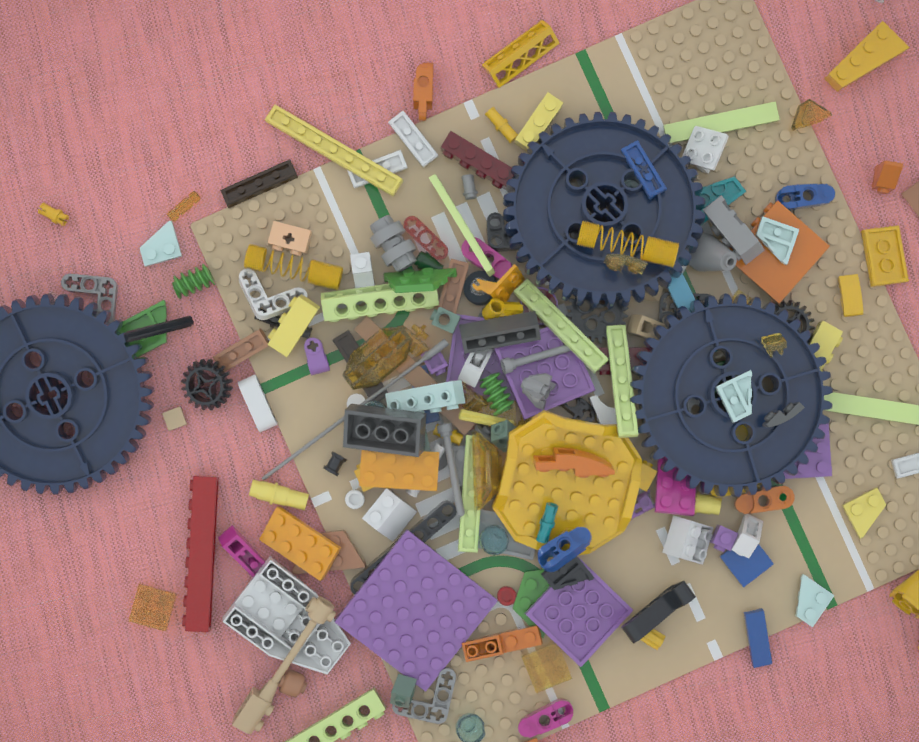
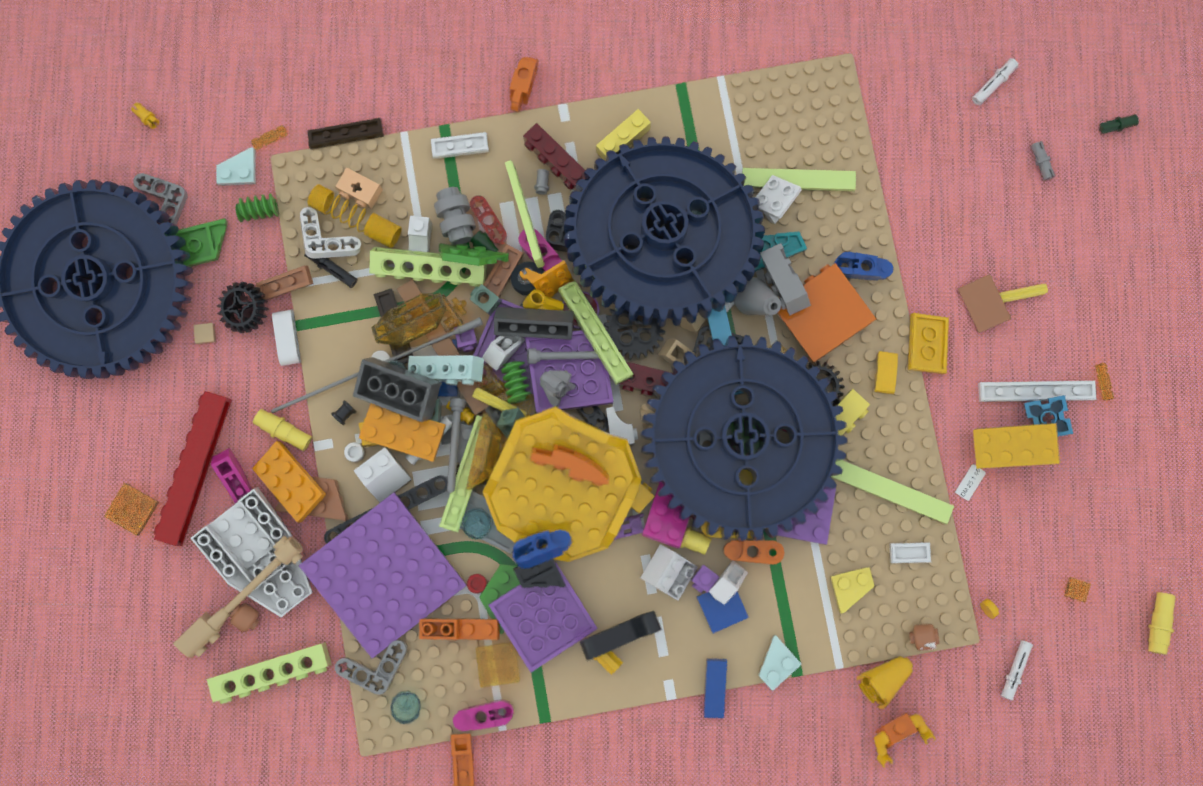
camera: 20 degrees right, 5 degrees down
(157, 329) = (209, 242): black axle -> none
(293, 325) = (337, 269): light yellow brick -> none
(316, 360) = (353, 309): medium lavender piece -> none
(334, 150) = (423, 118): light yellow tile -> none
(403, 691) = (349, 652): sand green brick -> none
(413, 139) = (501, 125): white tile -> none
(501, 124) = (587, 130): yellow pin -> none
(504, 58) = (620, 66): yellow fence -> none
(547, 522) = (531, 518): teal pin -> none
(618, 261) = (663, 278): clear yellow slope -> none
(621, 379) = (640, 394): yellowish green tile -> none
(637, 153) = (709, 183): blue tile -> none
(655, 250) = (701, 276): yellow piece -> none
(737, 396) = (748, 437): light aqua wing -> none
(773, 343) = (798, 393): clear yellow tile -> none
(777, 238) = (826, 297): light aqua wing -> none
(777, 417) = (785, 468): dark grey slope -> none
(809, 114) = (886, 191): clear yellow slope -> none
(872, 52) = (956, 149): yellow wedge -> none
(886, 176) = (947, 266): orange slope -> none

